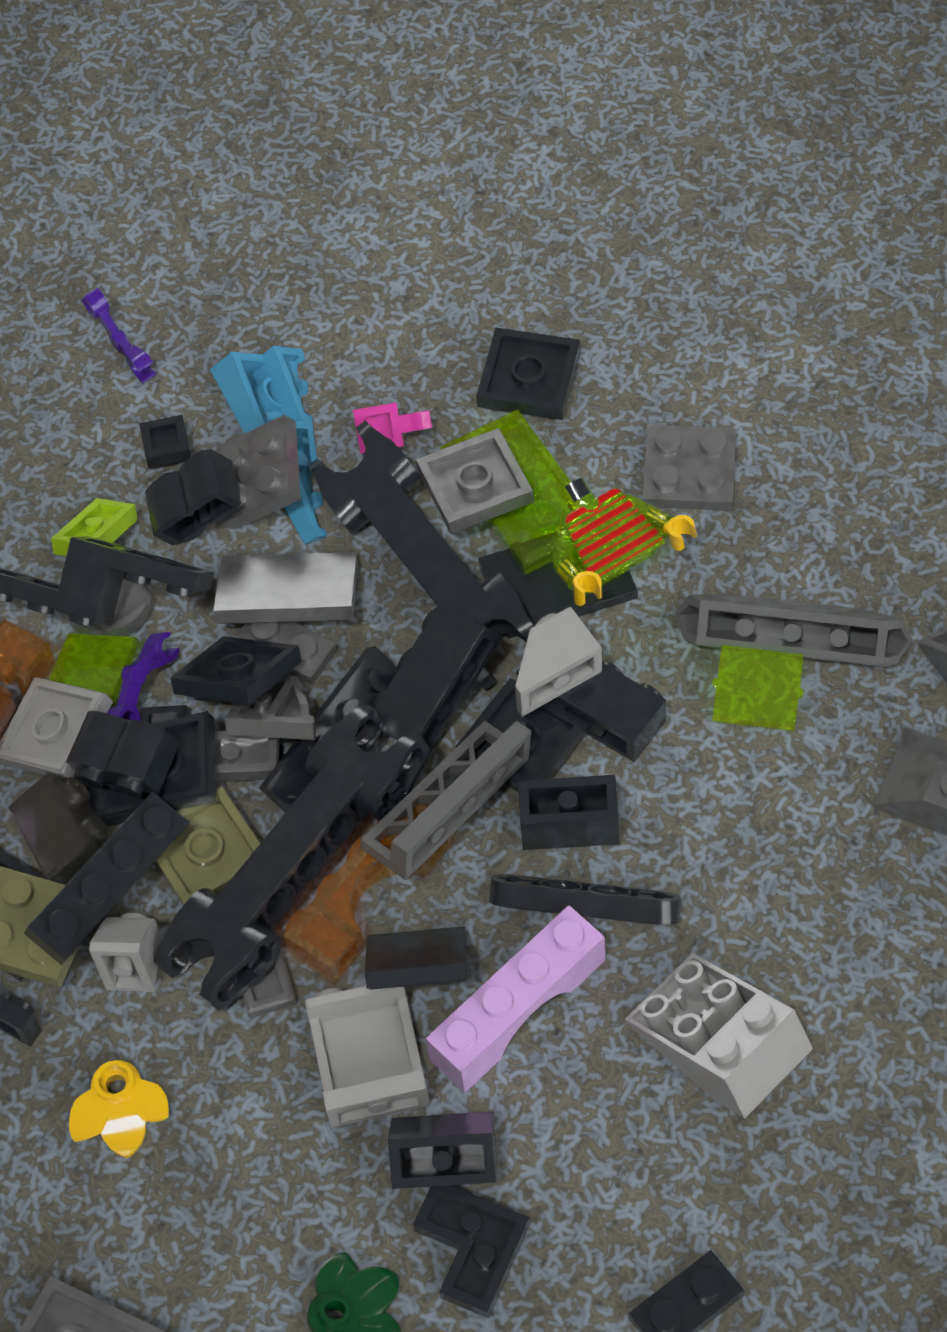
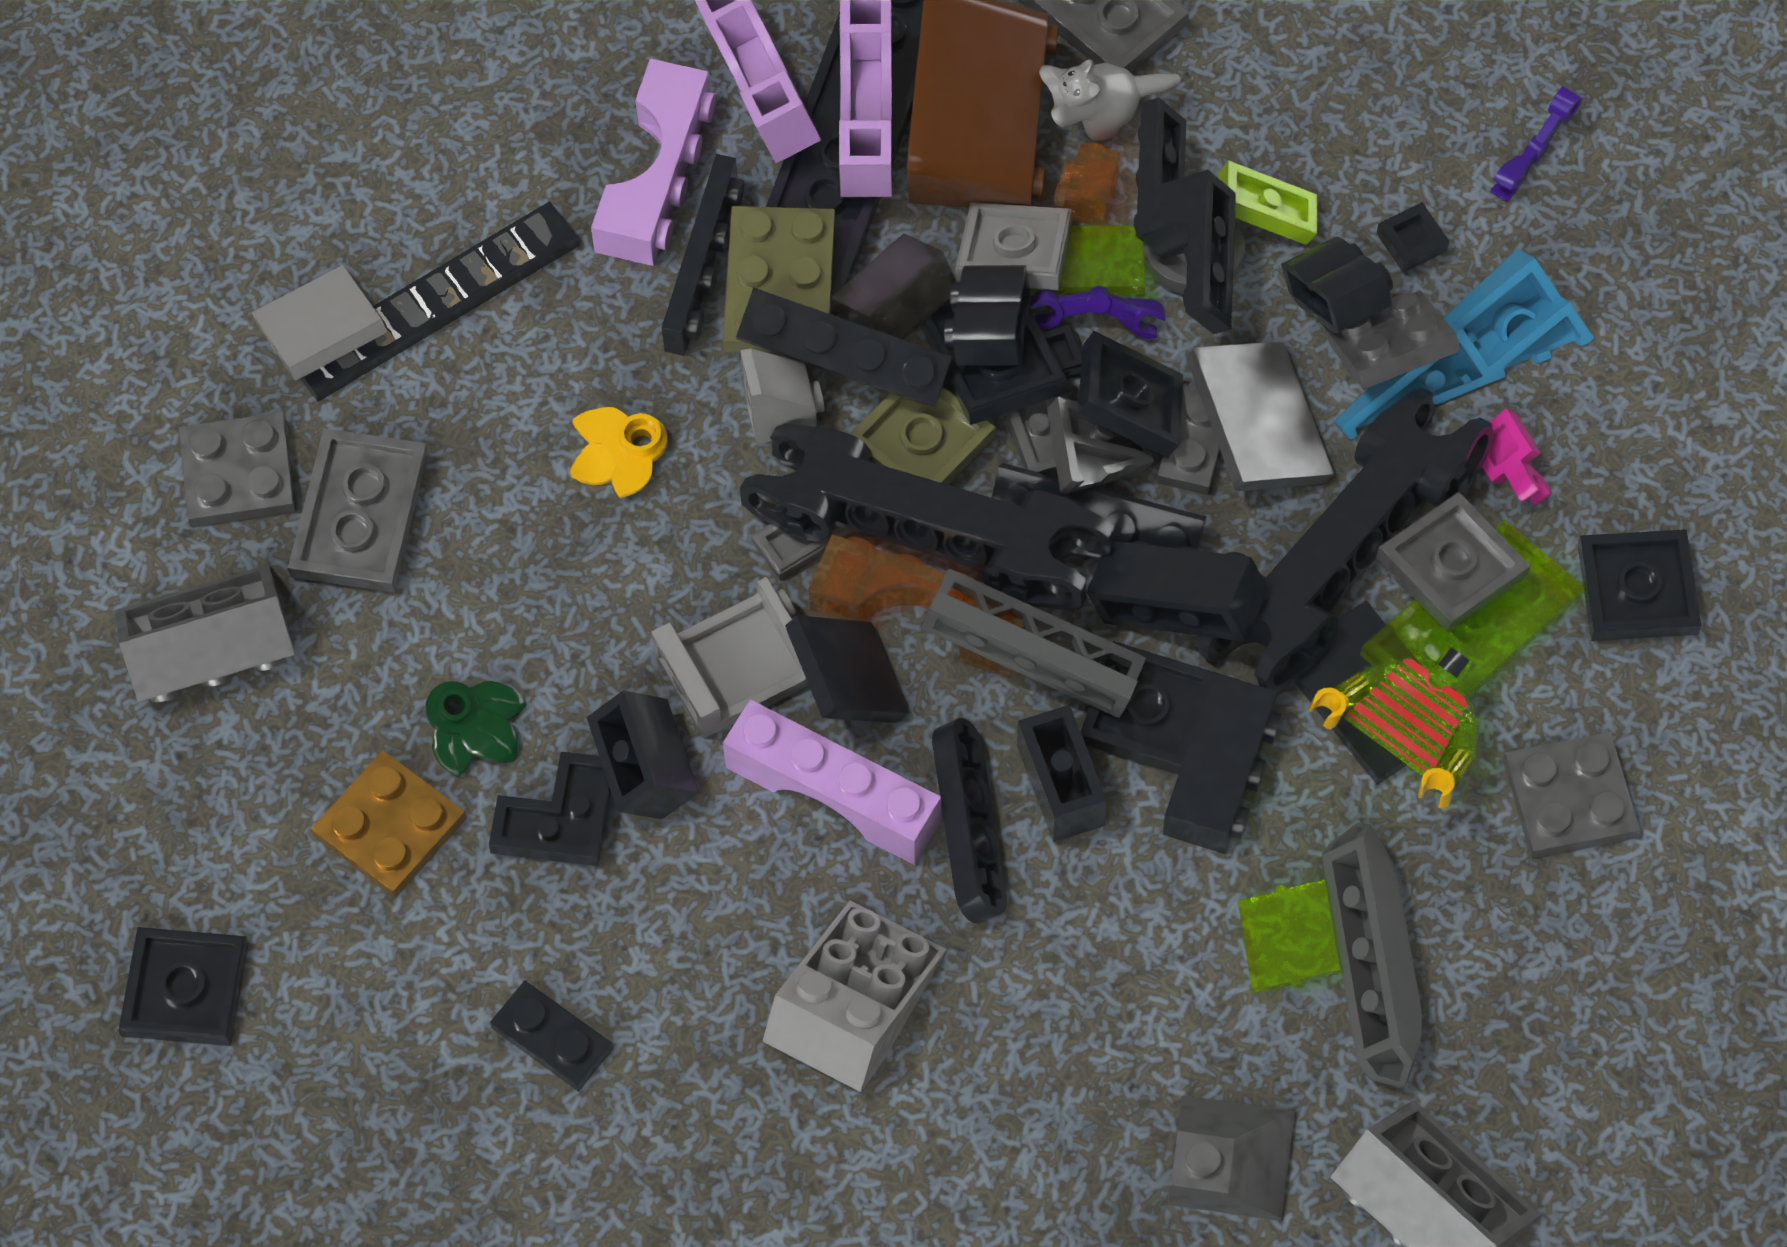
camera: 70 degrees right, 5 degrees up
(556, 659) = (1228, 699): light grey slope -> none

